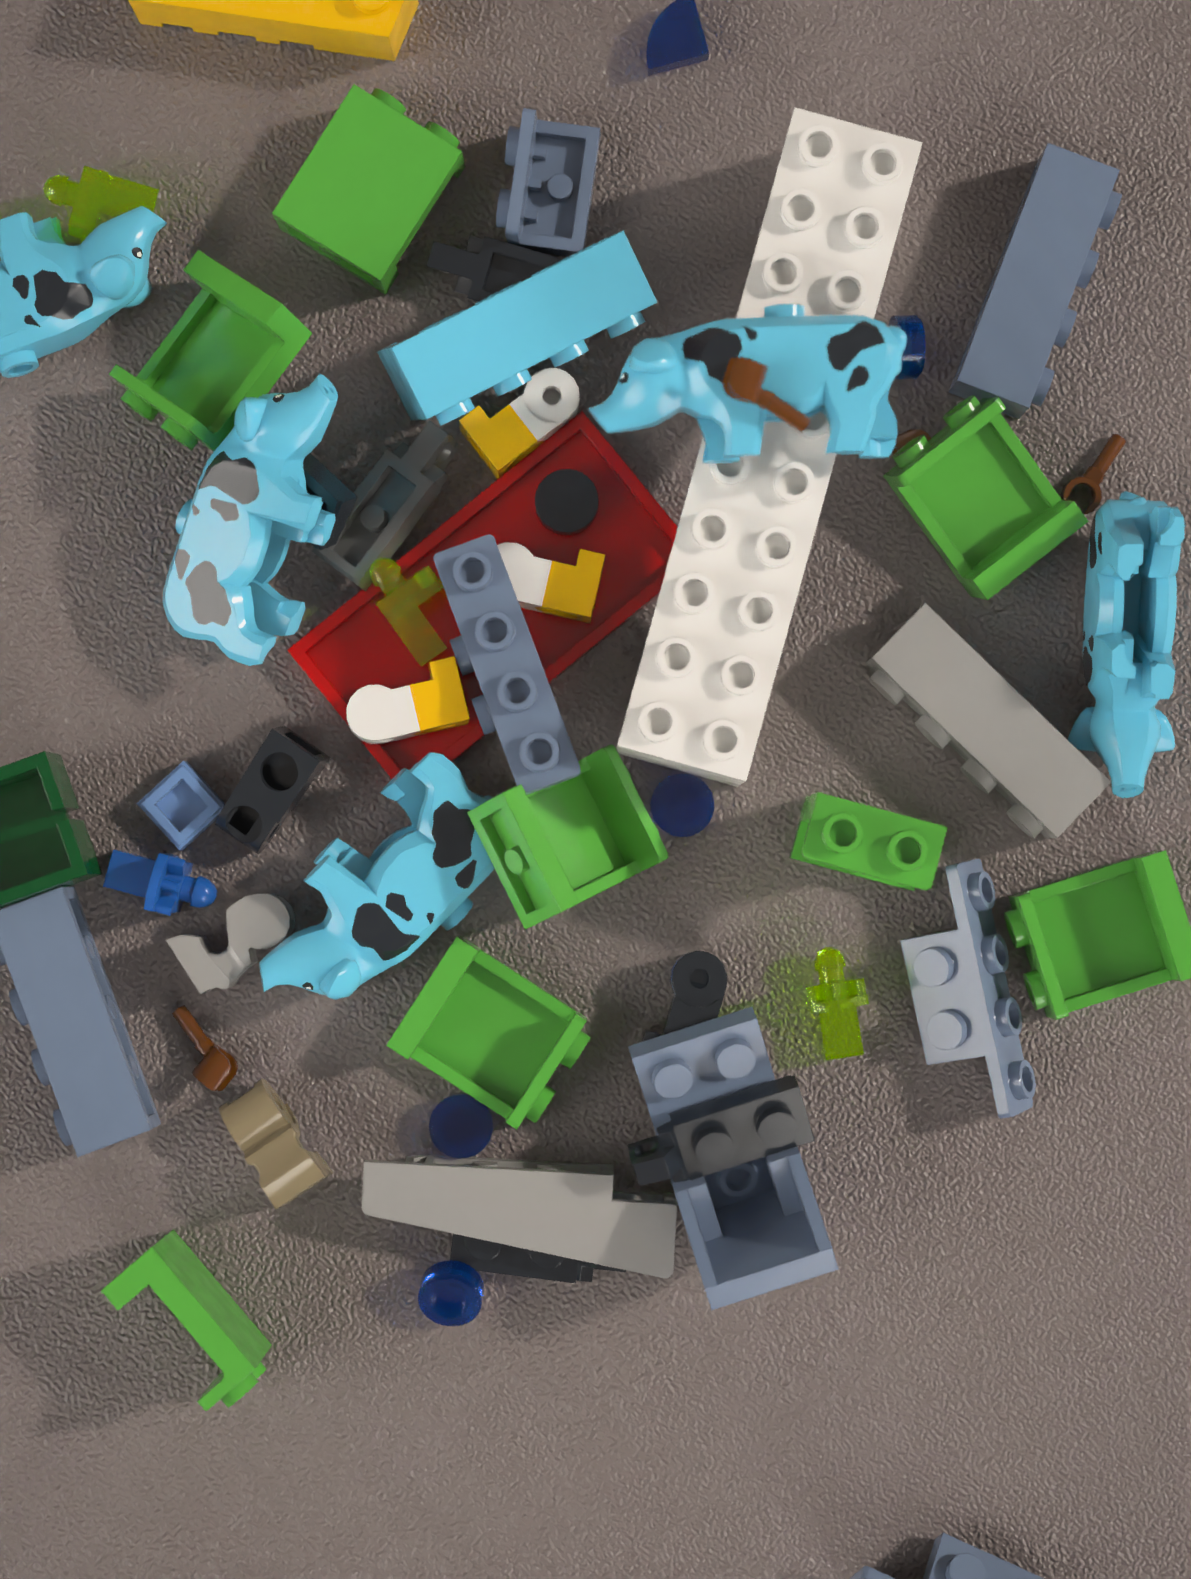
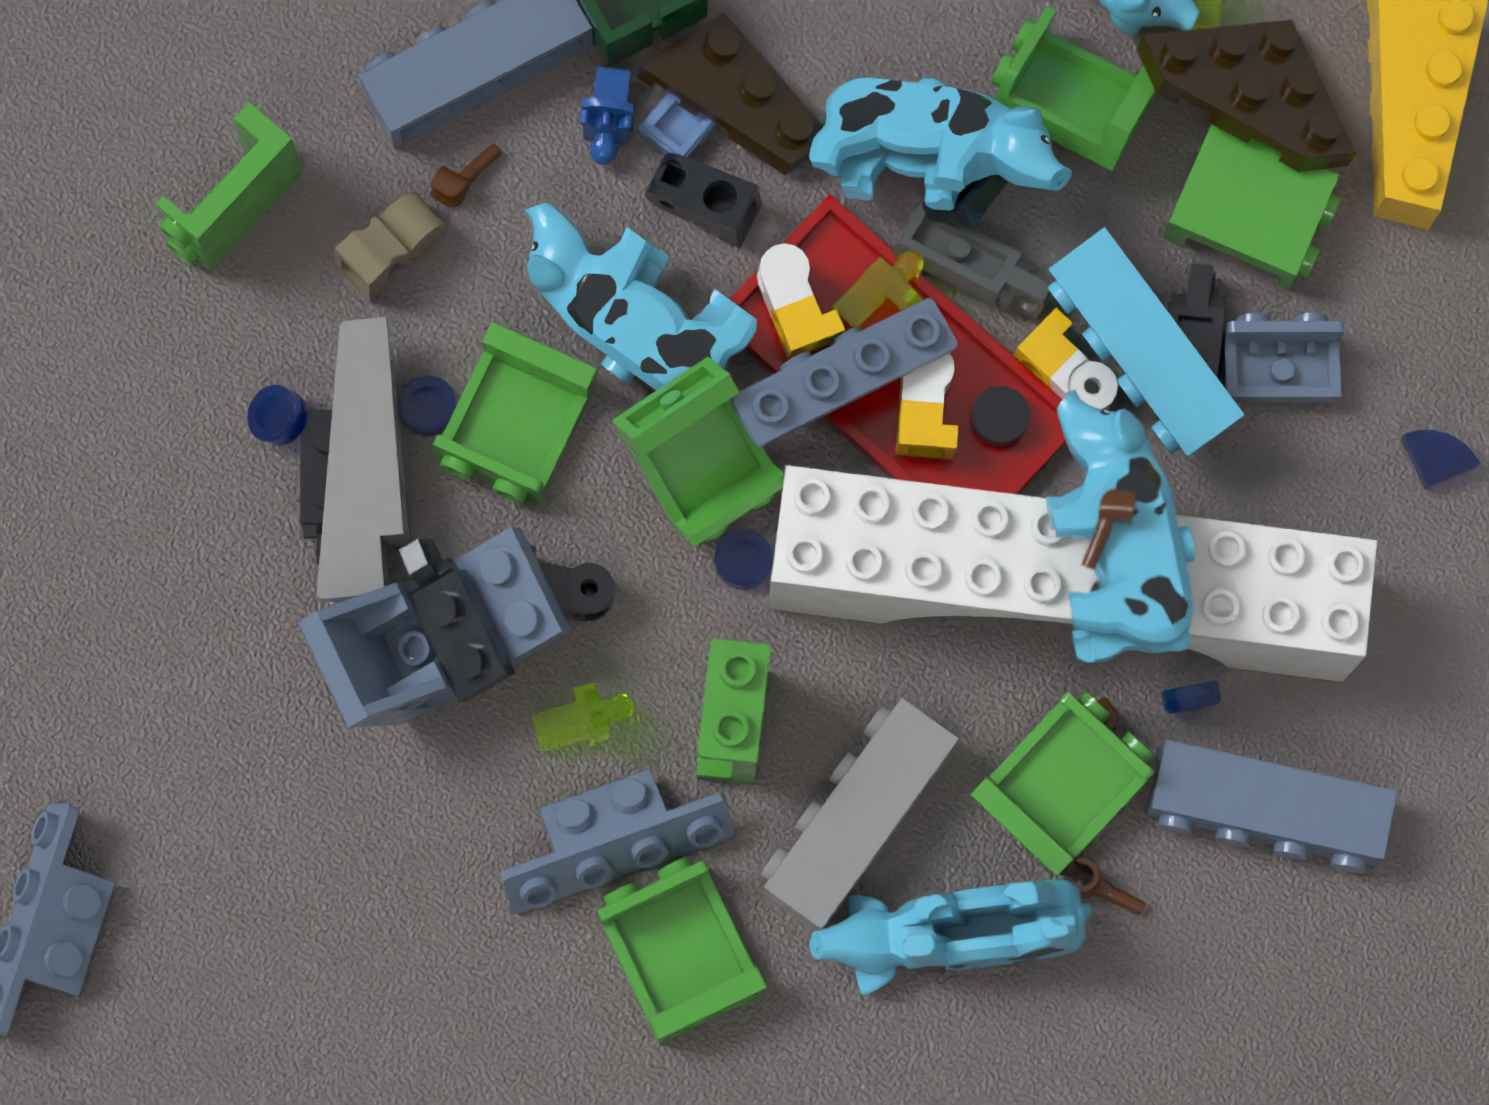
camera: 75 degrees right, 10 degrees down
(150, 735) = (733, 85): none -> dark brown wing
(240, 158) = (1253, 85): none -> dark brown plate
(252, 924) = (580, 195): light grey leg -> none

